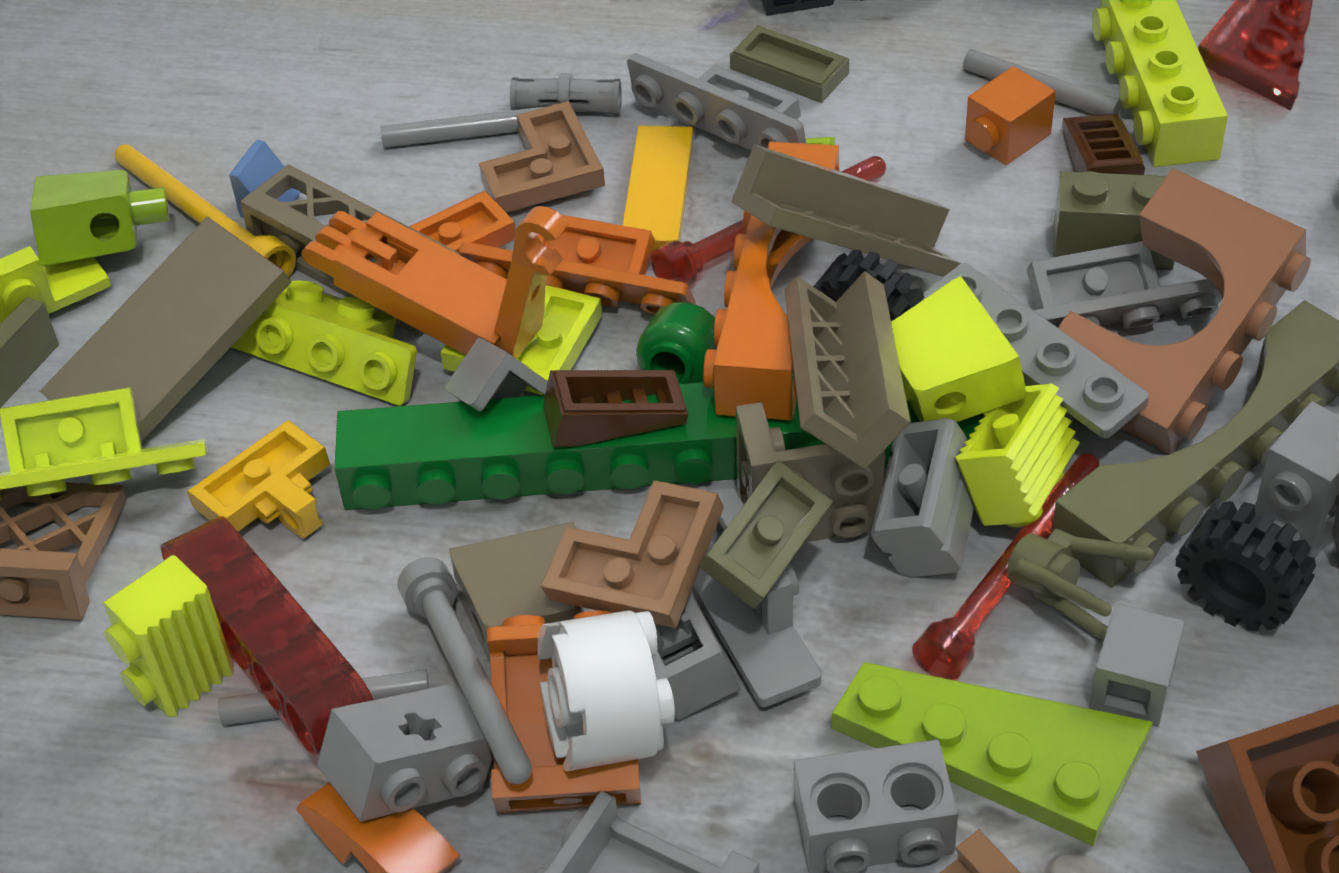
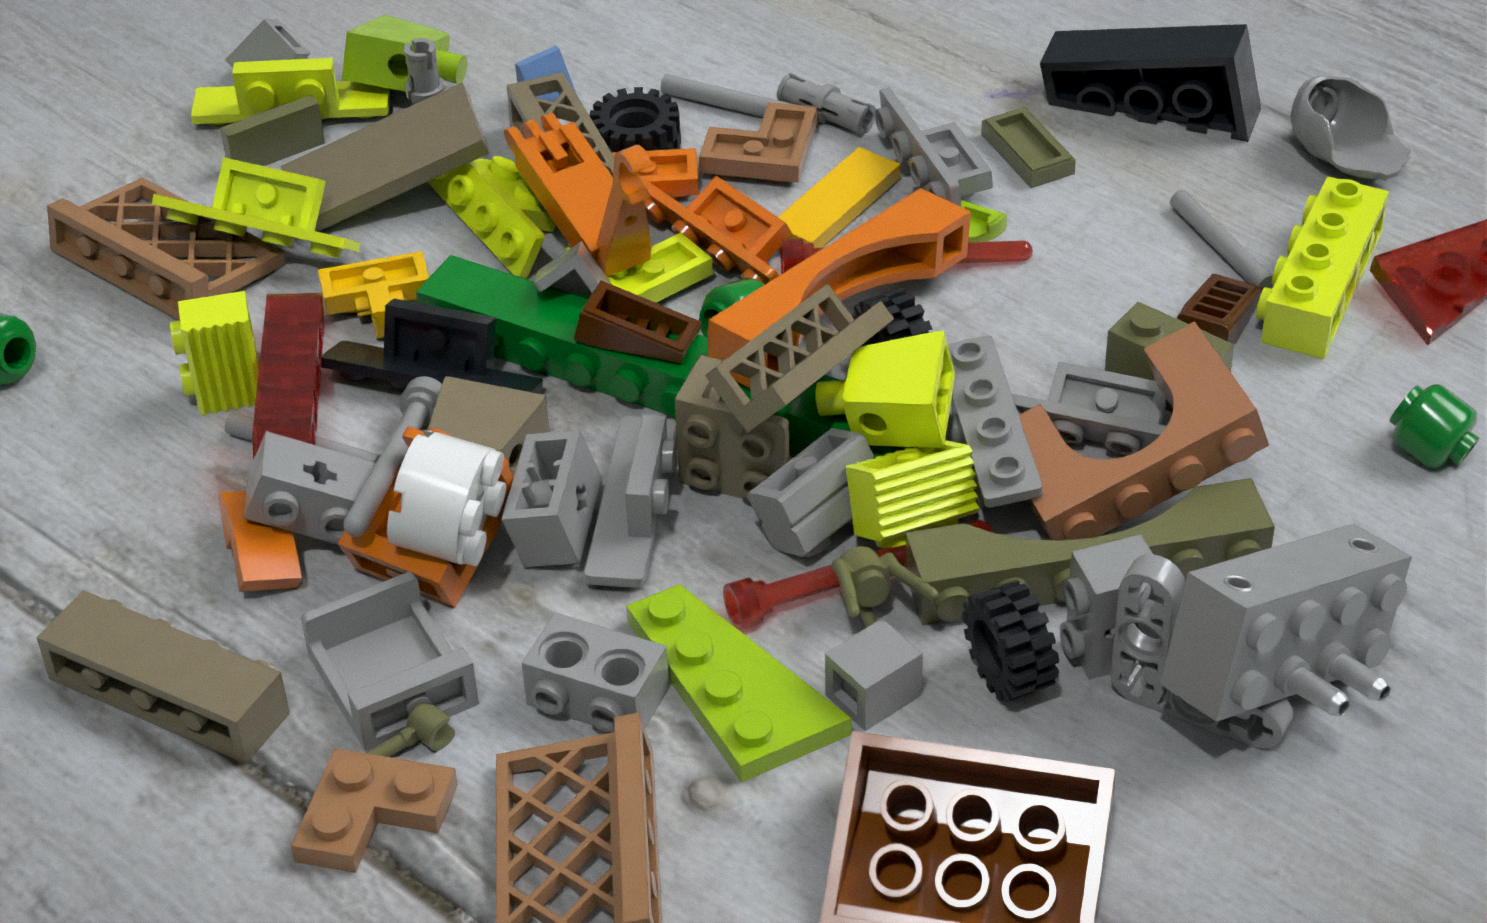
camera: 30 degrees right, 5 degrees down
(150, 234) = (422, 70): none -> light grey pin
(199, 208) = (490, 91): yellow piece -> none
(390, 523) = (429, 344): none -> black bracket
(401, 174) = (638, 120): none -> black tyre
(643, 572) = (547, 438): medium nougat plate -> none
(765, 534) = (645, 448): olive plate -> none
(843, 210) = (923, 259): dark tan fence -> none
(1009, 115) = (1160, 251): orange brick -> none

